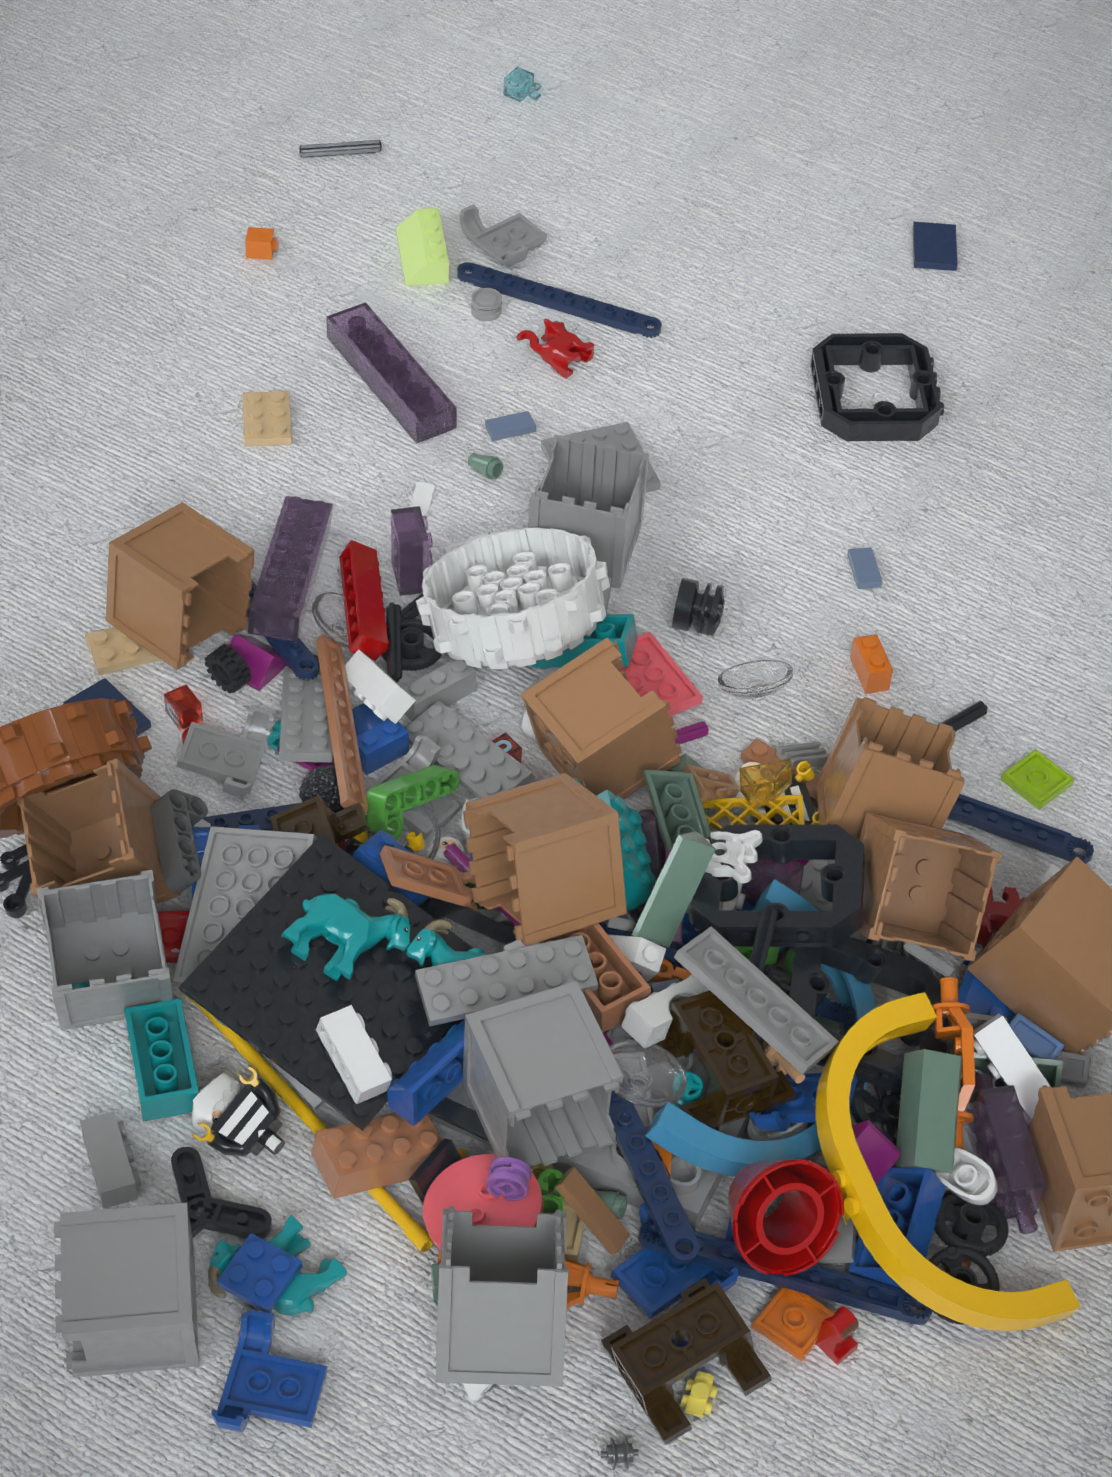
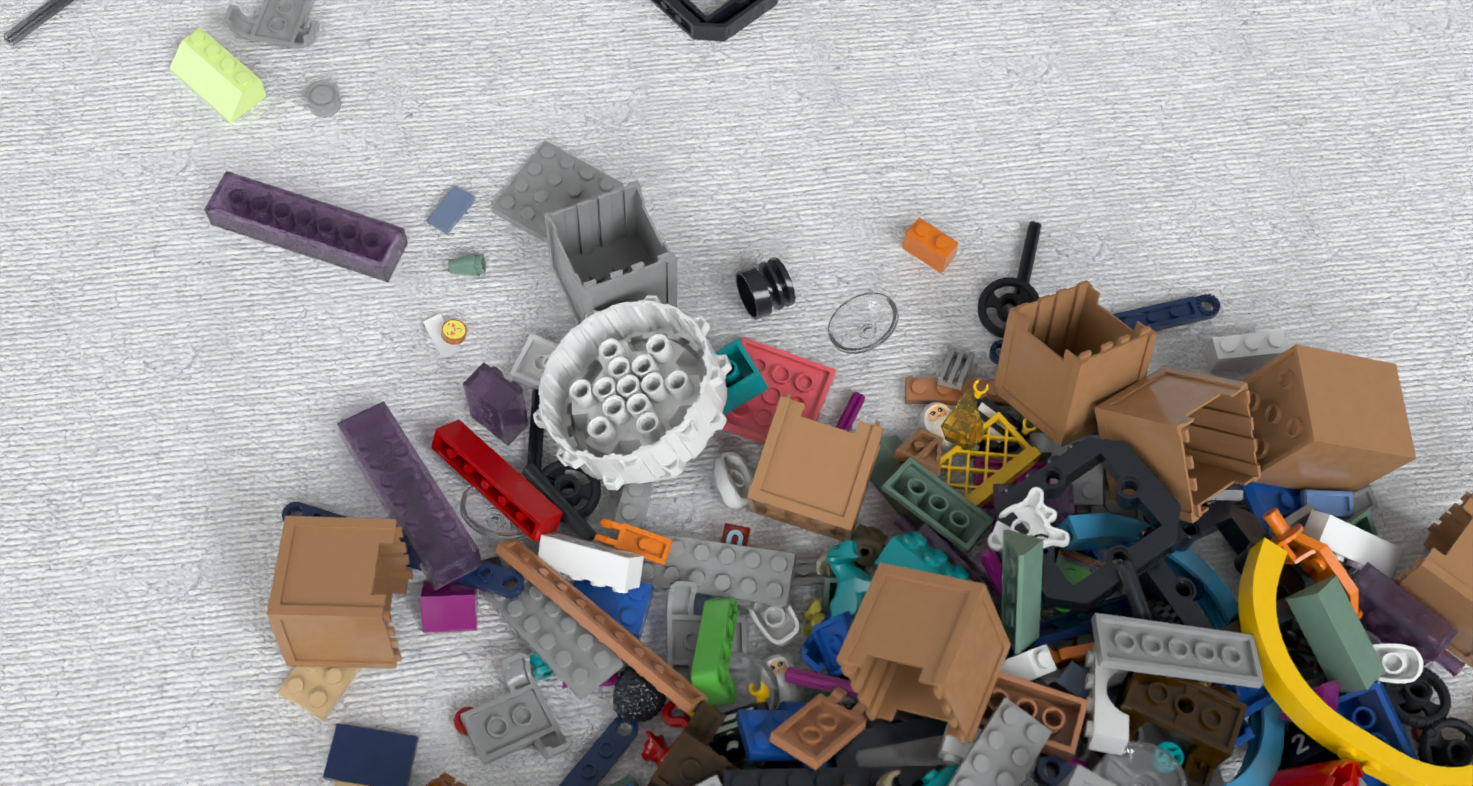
camera: 40 degrees left, 15 degrees up
(183, 707) = (435, 701): clear red brick -> none
(228, 668) = (442, 635): black tyre -> none
(260, 243) = (63, 164): orange brick -> none
(266, 418) = (234, 347): tan plate -> none
(428, 701) = (636, 540): none -> orange hinge
(432, 500) = (453, 331): none -> tile
(559, 300) = (376, 53): dark blue plate -> none
(560, 347) = (427, 105): red animal -> none
(864, 568) = (844, 156): sand blue tile -> none
(1037, 779) = (1124, 262): lime tile -> none

